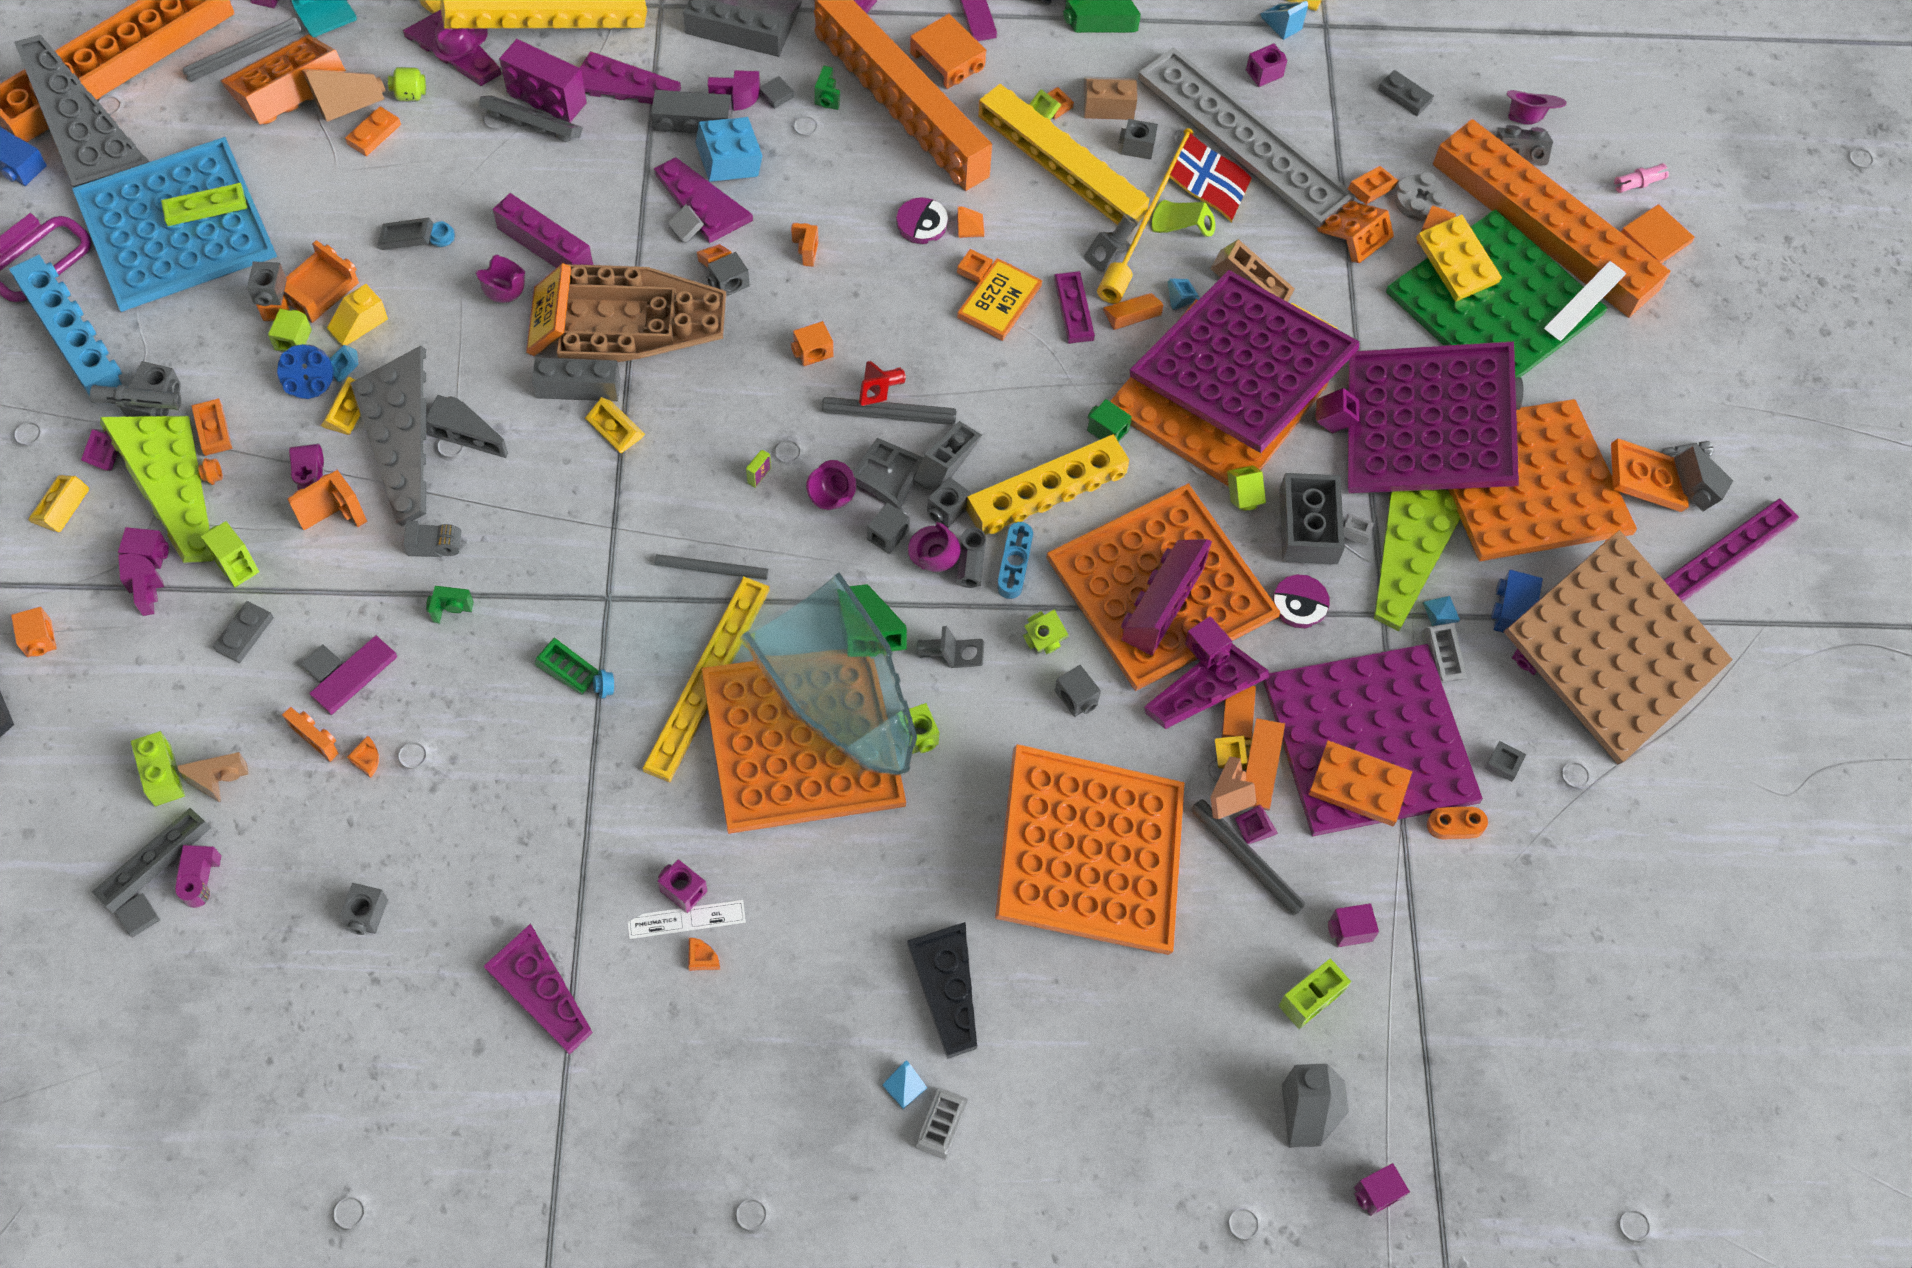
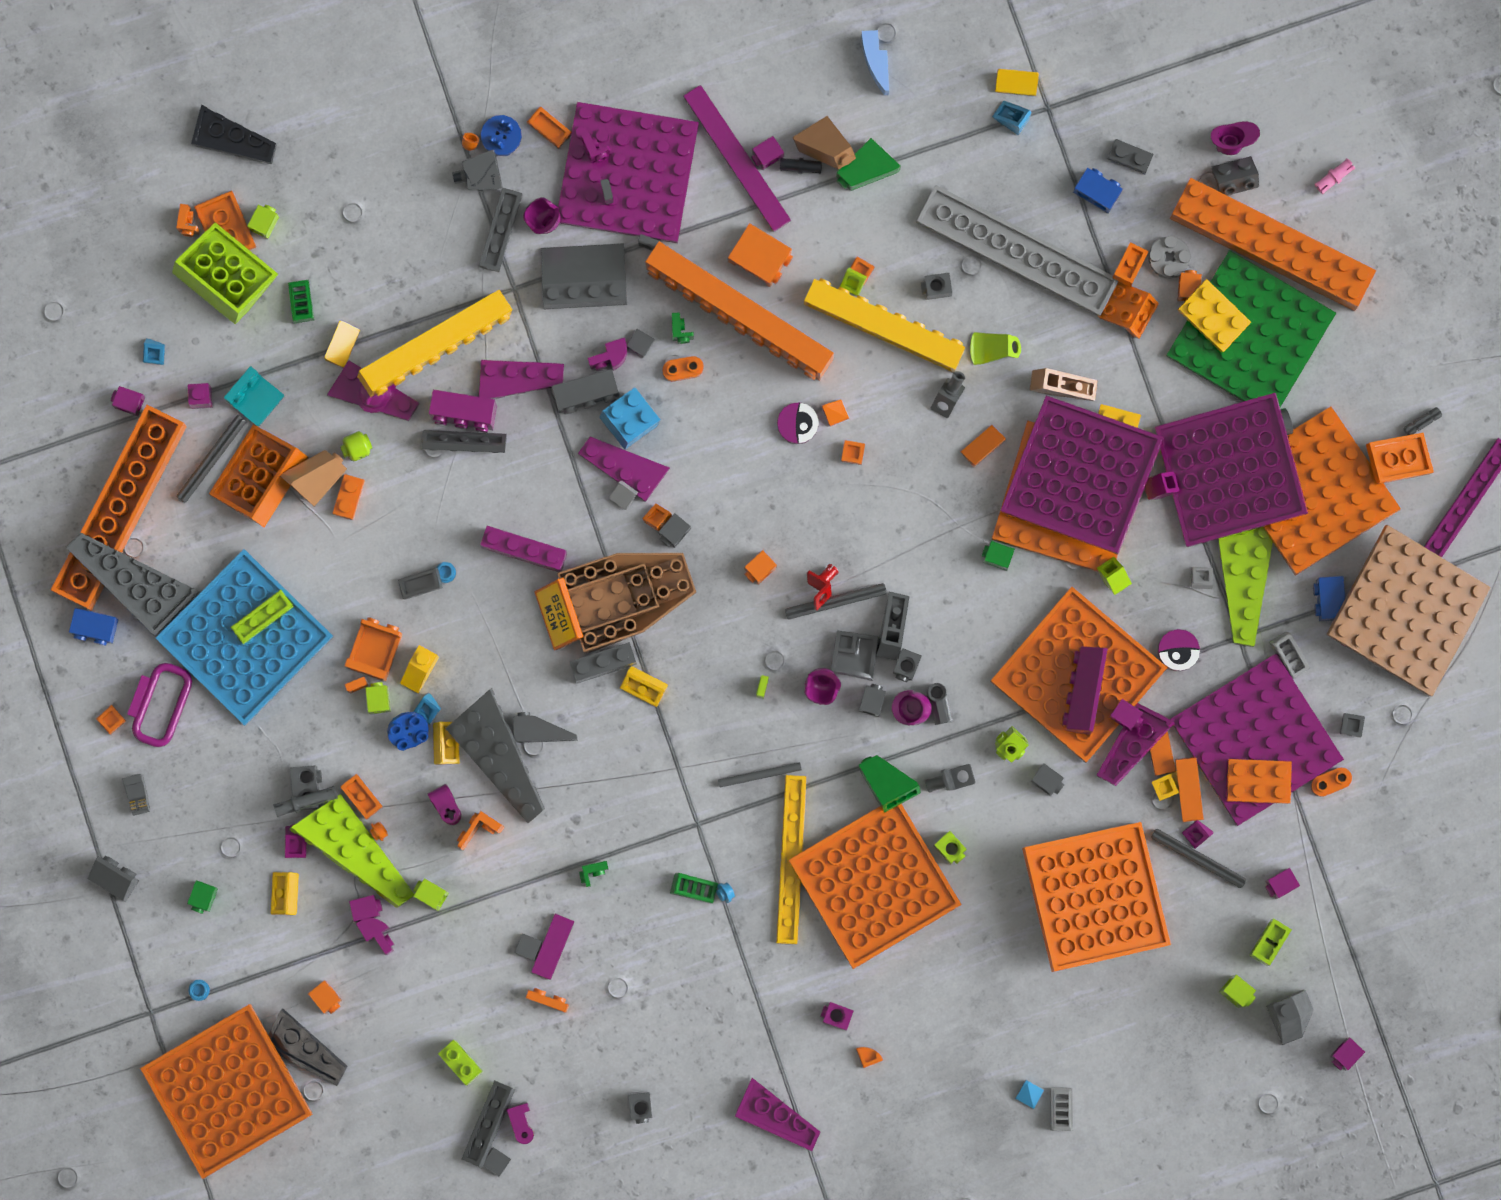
camera: 15 degrees left, 20 degrees up
(44, 293) = (170, 730): dark azure brick -> none
(206, 773) = (493, 1056): medium nougat slope -> none
(243, 631) = (462, 942): dark grey plate -> none
(266, 283) = (346, 667): dark grey brick -> none
(365, 757) = (589, 1001): orange tile -> none
(431, 540) = (560, 827): dark grey leg -> none
(502, 280) = (512, 599): magenta helmet -> none
(678, 920) = (842, 1037): white sticker -> none
(808, 241) = (723, 481): orange bracket -> none
(813, 130) = (683, 371): none -> orange plate
(838, 677) = (886, 843): clear light blue windscreen -> none
(945, 978) = (1031, 1017): black wing -> none
(999, 299) = (881, 473): tile -> none
(1019, 570) = (972, 675): dark azure beam -> none
(1054, 473) = (1005, 582): yellow brick -> none
(1074, 307) = (938, 459): magenta tile -> none
(1110, 98) = (900, 248): medium nougat slope -> none
(1181, 293) = (1014, 416): dark azure slope -> none
(1202, 175) = (999, 300): flag -> none
(1232, 790) = (1174, 821): nougat slope -> none
(1248, 1042) = (1238, 991): none -> lime brick
(1266, 65) = (1011, 181): magenta brick -> none
(1311, 518) = (1168, 585): dark grey brick -> none
(1358, 107) = (1098, 190): none -> blue brick
(1441, 611) = (1279, 621): dark azure slope -> none
(1585, 300) = (1318, 321): white sticker -> none
(1658, 234) = (1359, 226): orange tile -> none
(1701, 477) = (1438, 448): dark grey slope -> none

